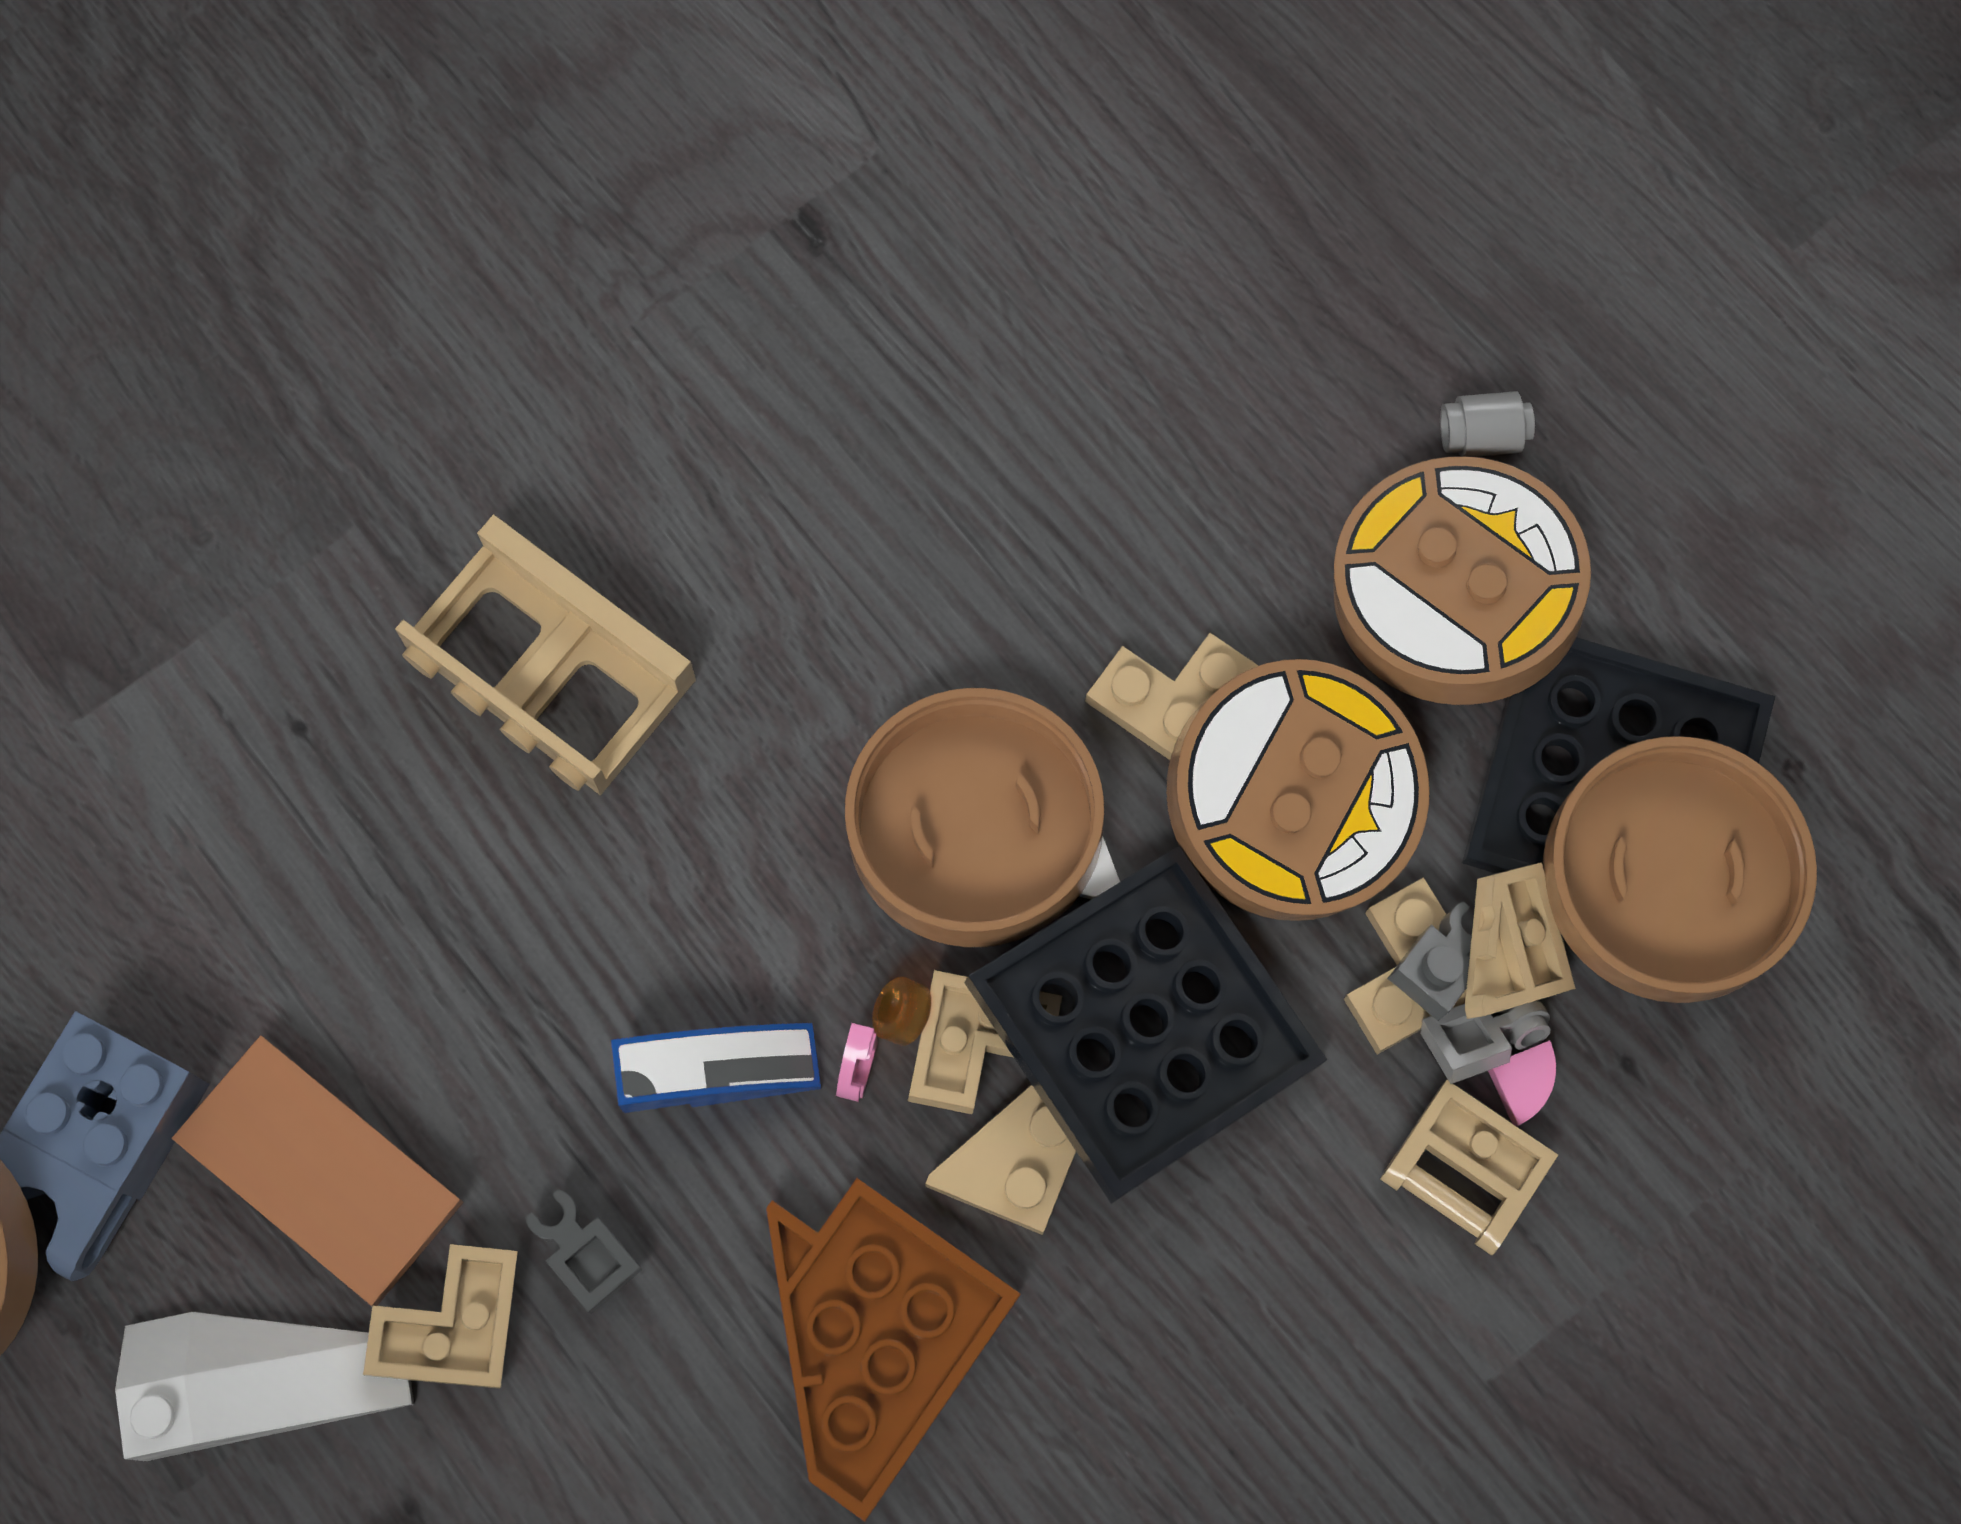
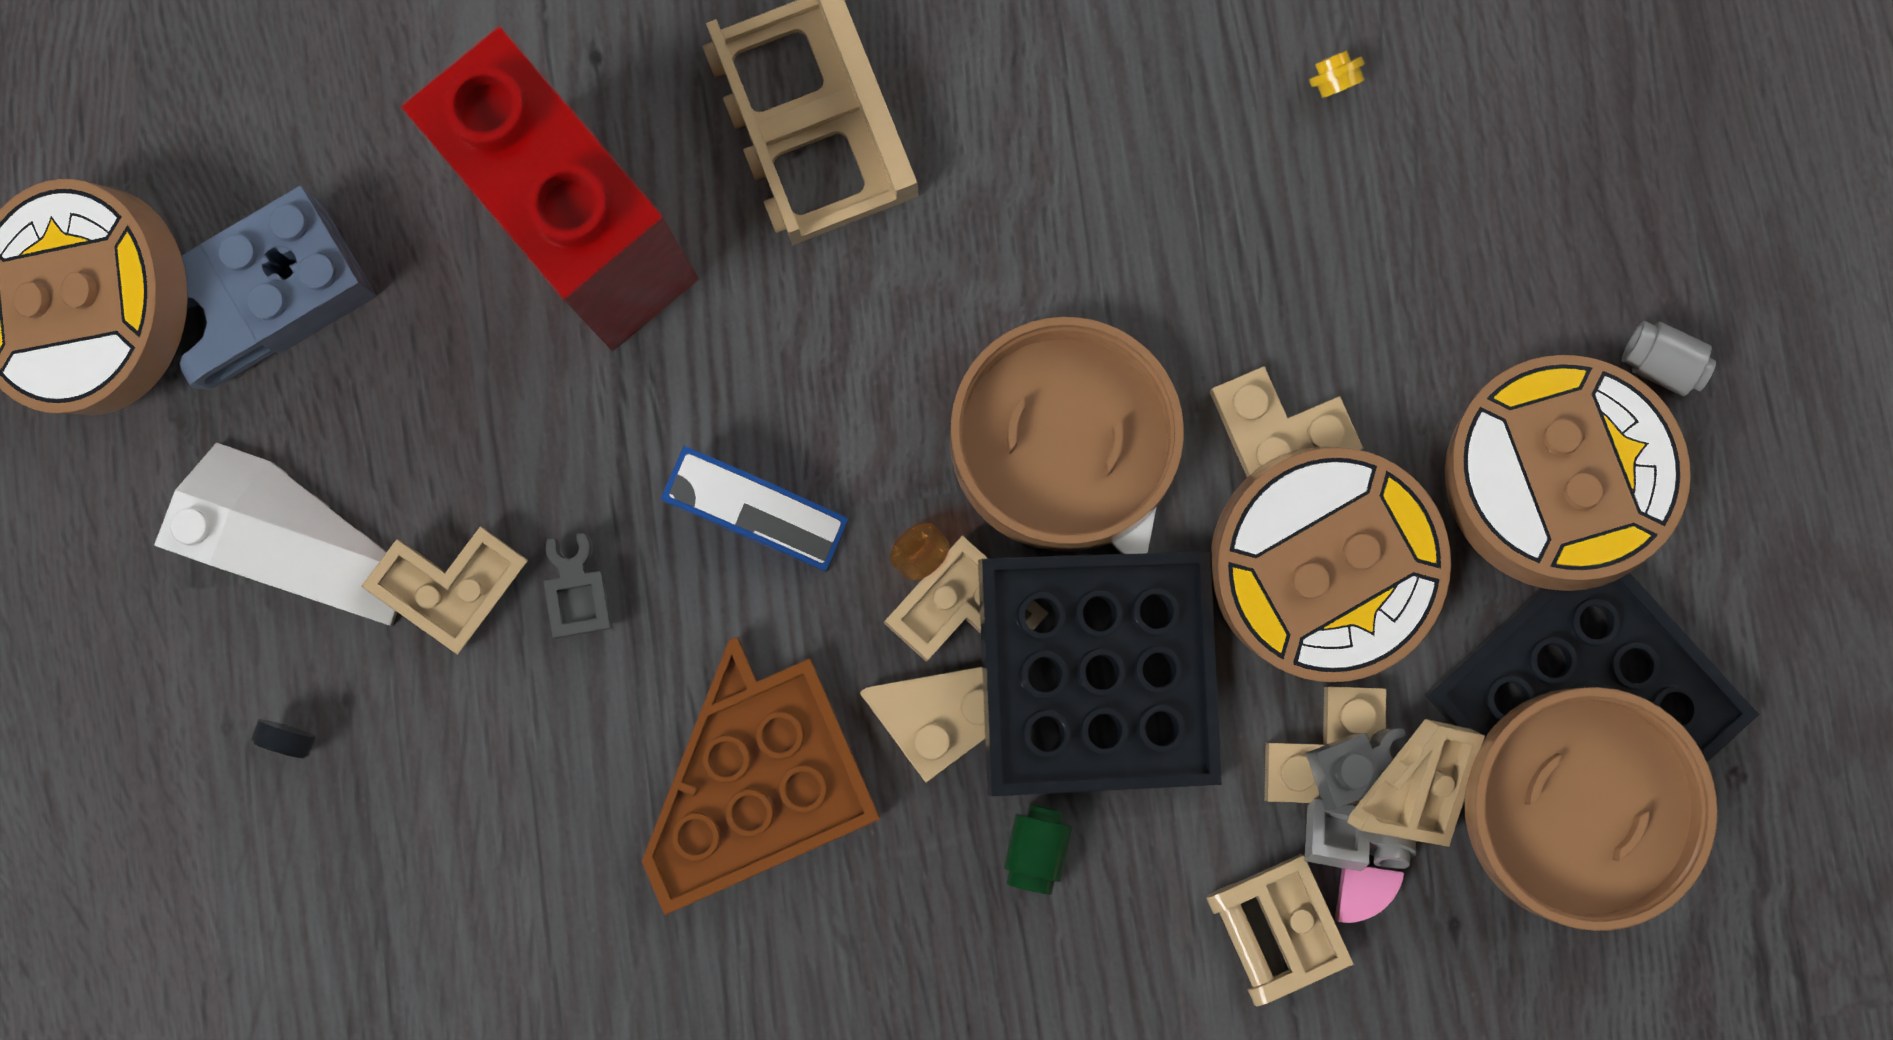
camera: 35 degrees right, 10 degrees up
(317, 1171) = (416, 411): nougat tile -> none
(346, 858) = (553, 188): none -> red brick
(856, 1062) = (862, 570): bright pink tile -> none
(1024, 343) = (1337, 74): none -> yellow plate
(1191, 1230) = (1037, 850): none -> dark green brick

